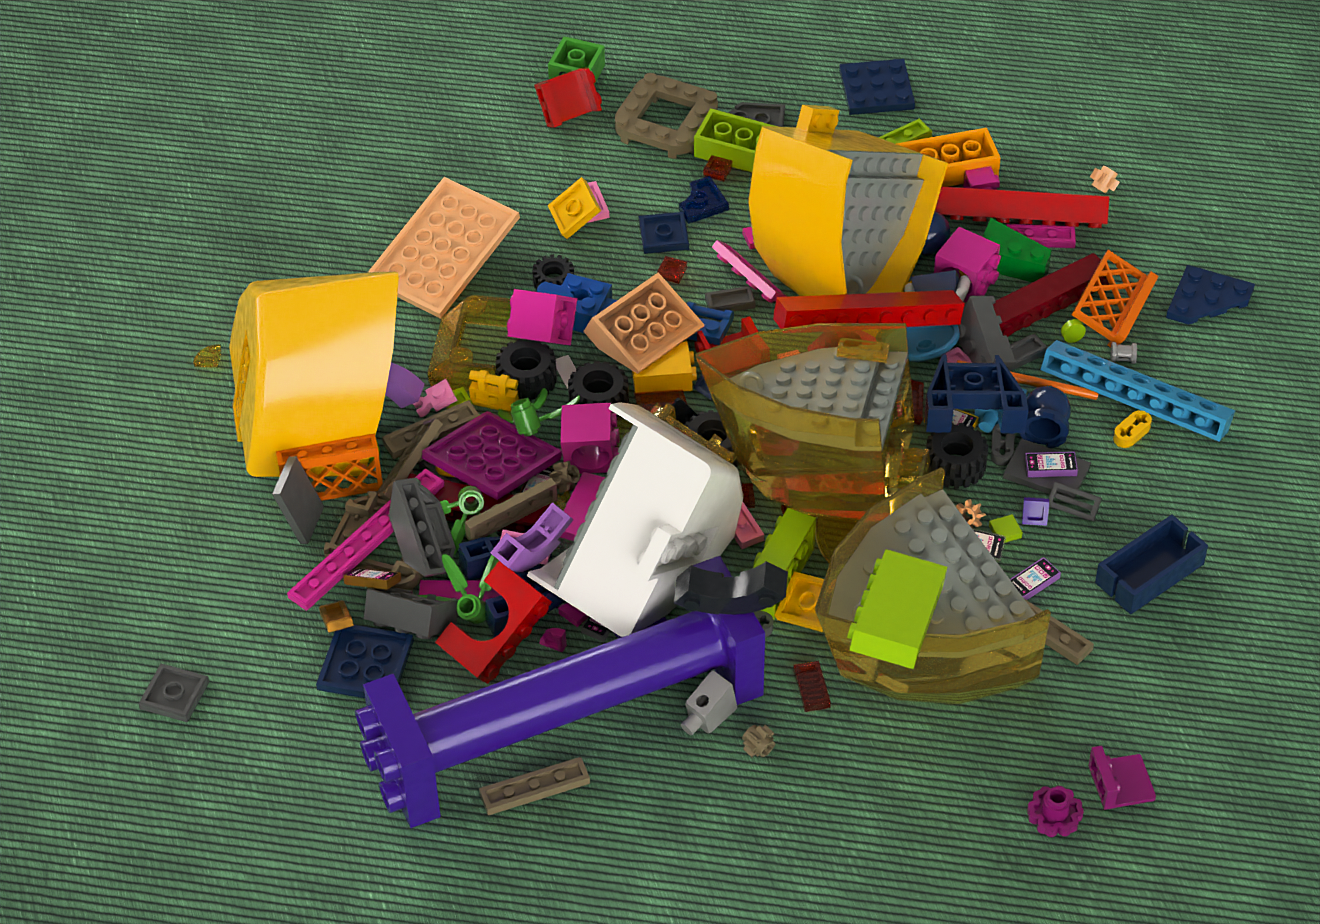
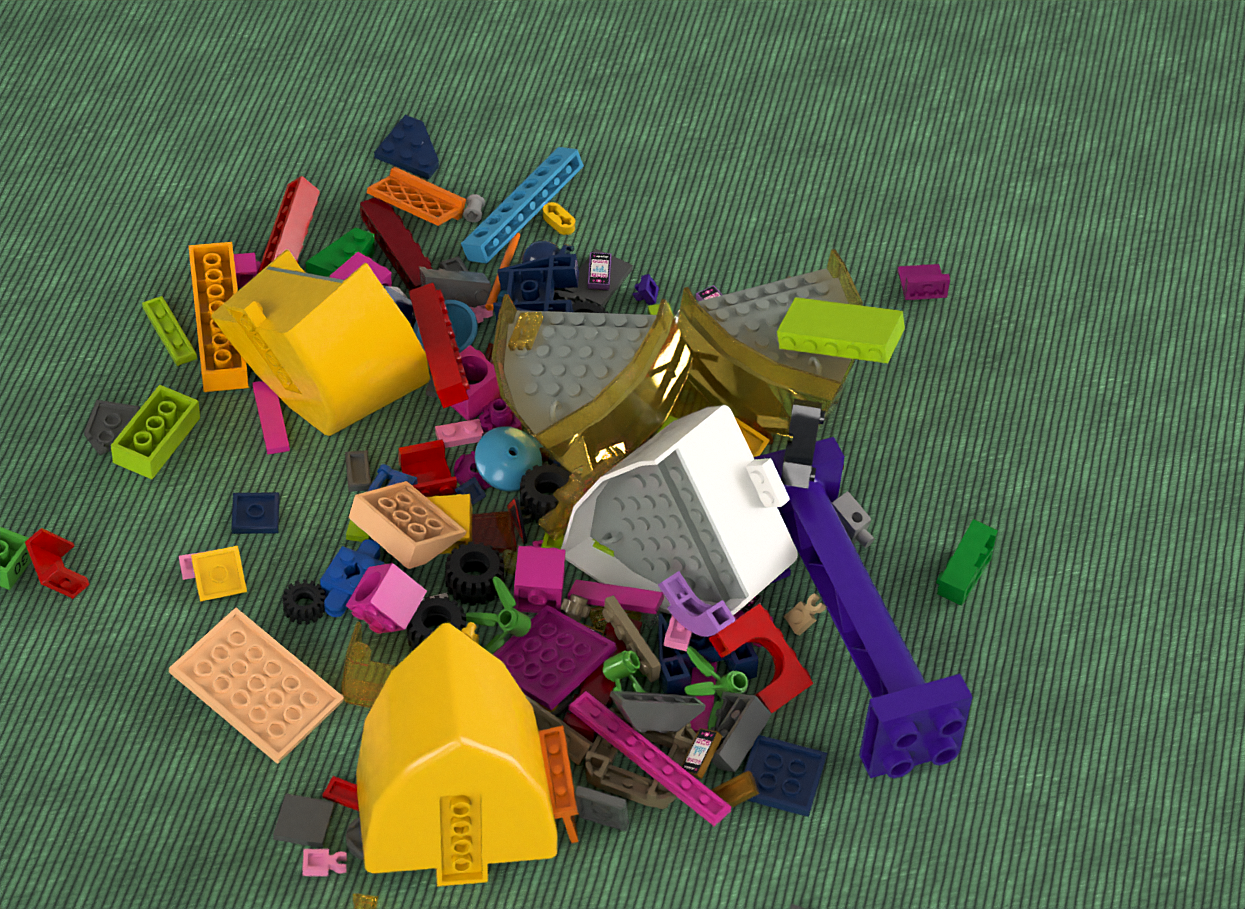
camera: 90 degrees left, 0 degrees up
(534, 786) = (920, 647): dark tan plate -> none
(648, 90) = (84, 460): dark tan plate -> none
(663, 822) = (967, 562): none -> green wedge
(672, 269) = (313, 508): clear red plate -> none
(703, 201) = (217, 477): clear blue tile -> none
(717, 168) = (178, 460): clear red plate -> none
(743, 267) = (336, 446): plate -> none
(758, 740) = (882, 496): dark tan gear -> none
(877, 86) = (84, 329): dark blue plate -> none
(1048, 235) = (316, 239): dark pink tile -> none
(1055, 811) = (951, 323): magenta plant -> none
(1073, 331) = (442, 236): lime tile -> none
(1094, 508) = (630, 274): dark grey tile -> none
(1104, 179) = (260, 185): light nougat gear -> none
(1151, 564) = (717, 225): dark blue piece -> none

